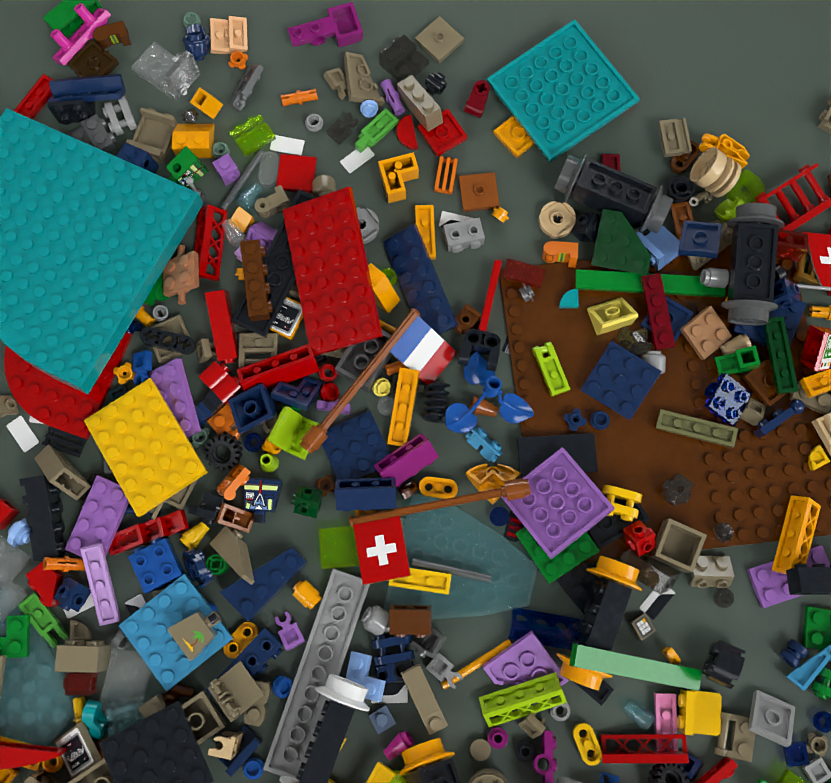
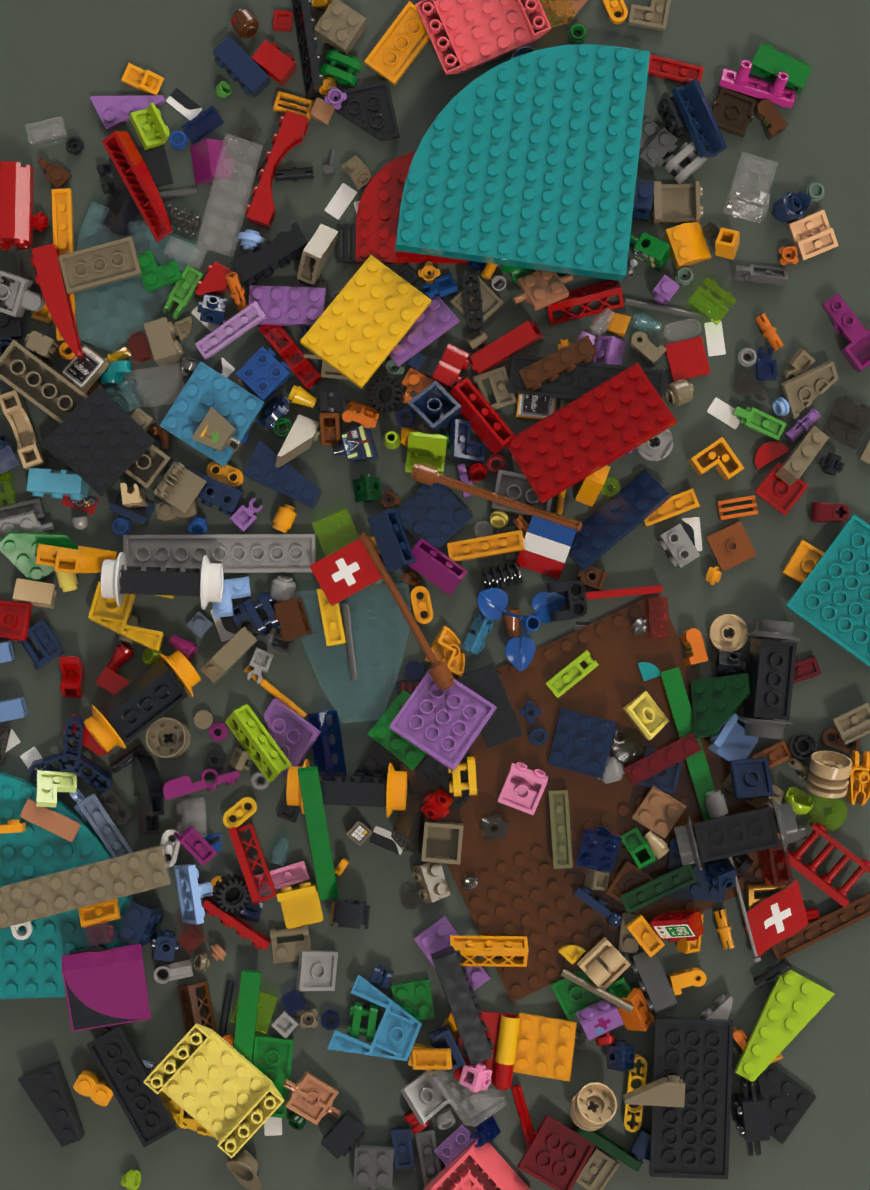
camera: 70 degrees right, 10 degrees up
(328, 110) = (766, 368): none -> clear blue plate
(646, 450) = (523, 788): none -> bright pink plate

